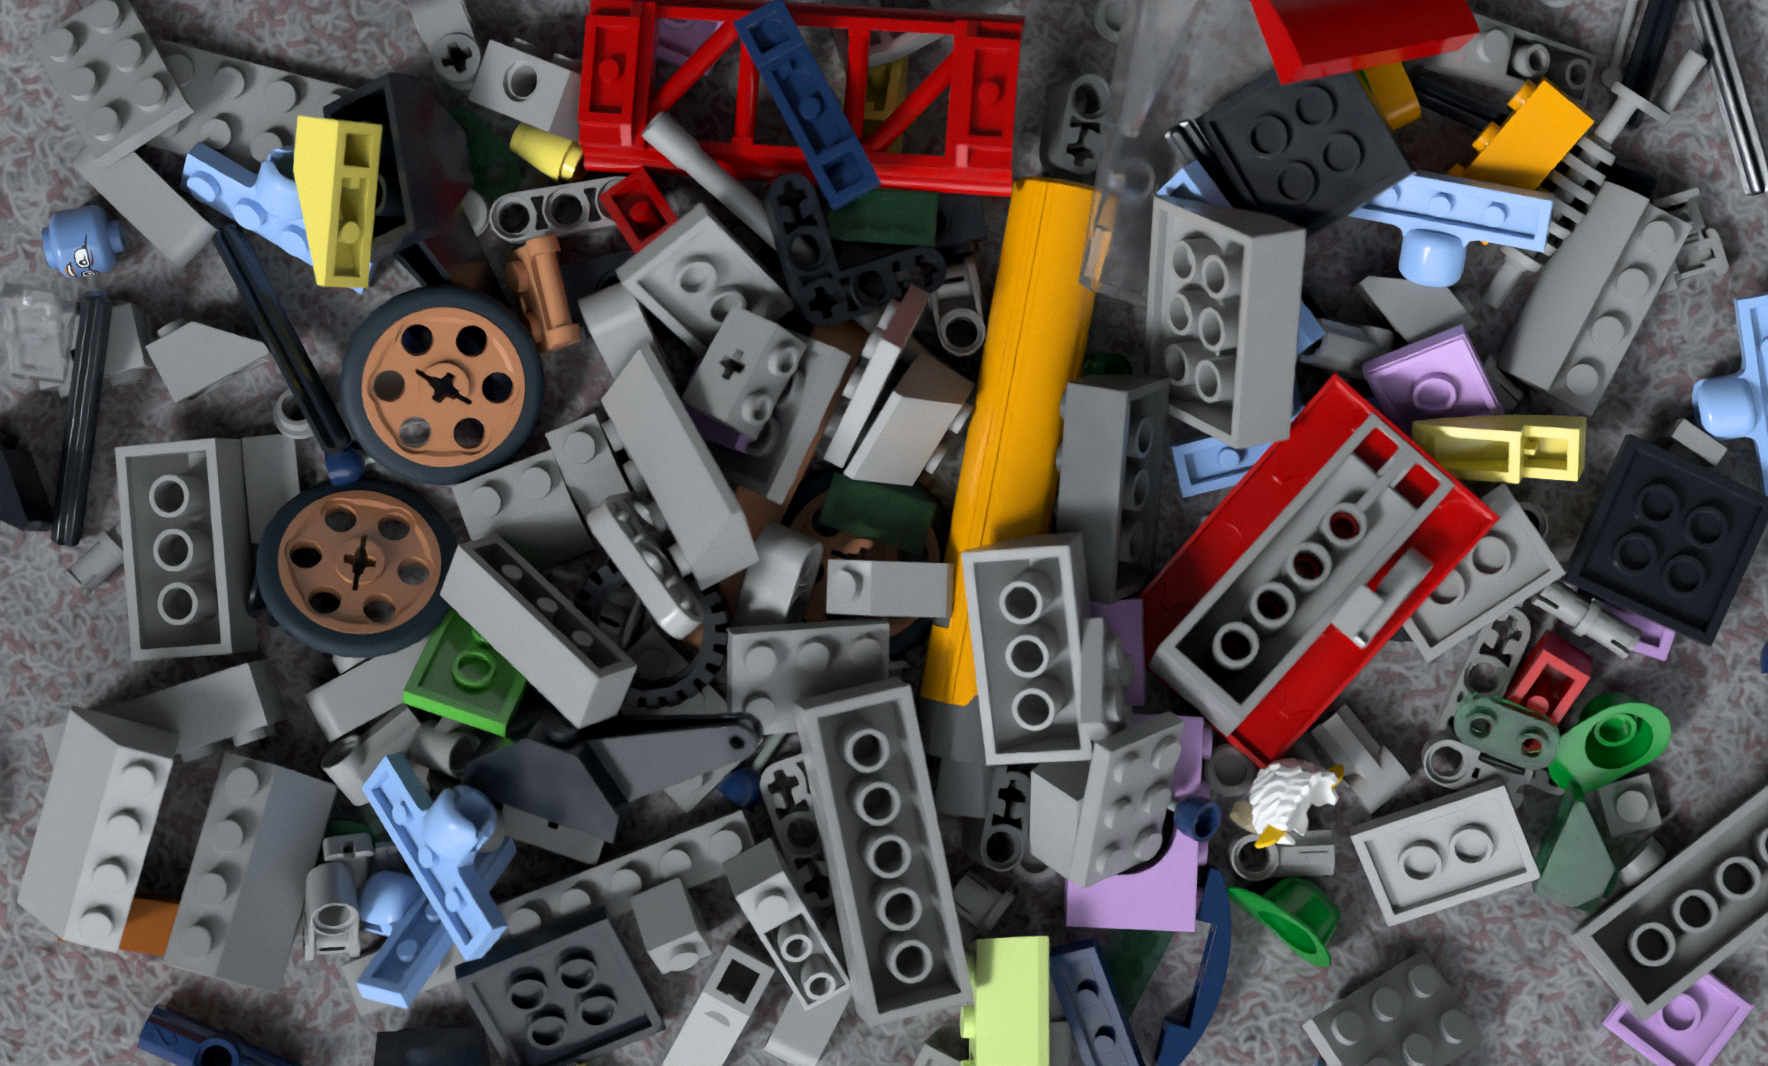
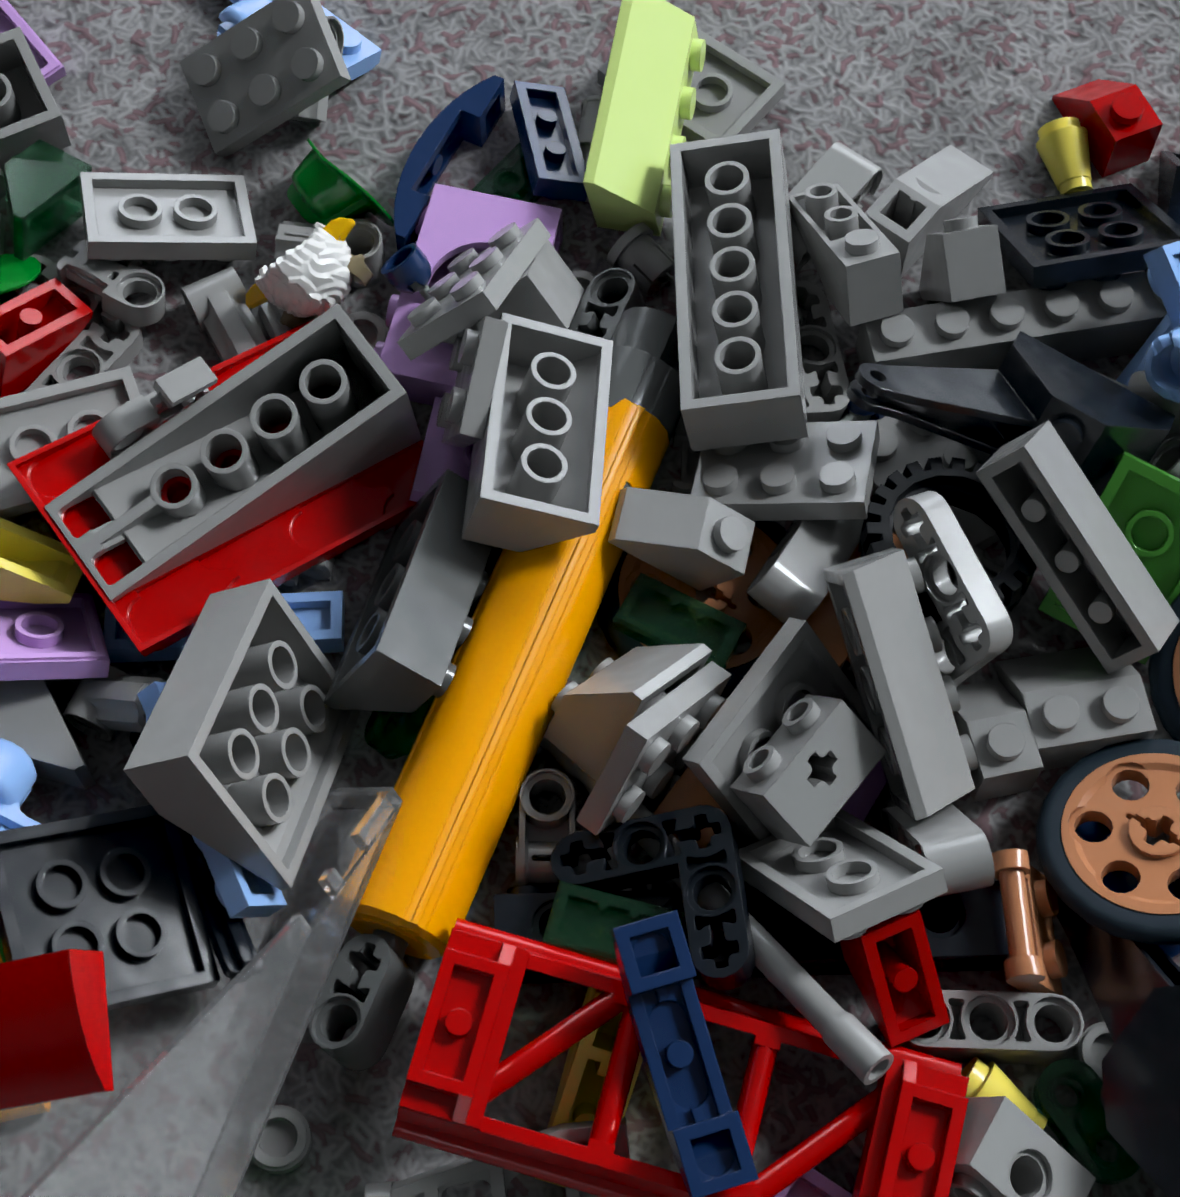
camera: 175 degrees left, 25 degrees down
(1508, 729) = (70, 301): clear green plate -> none

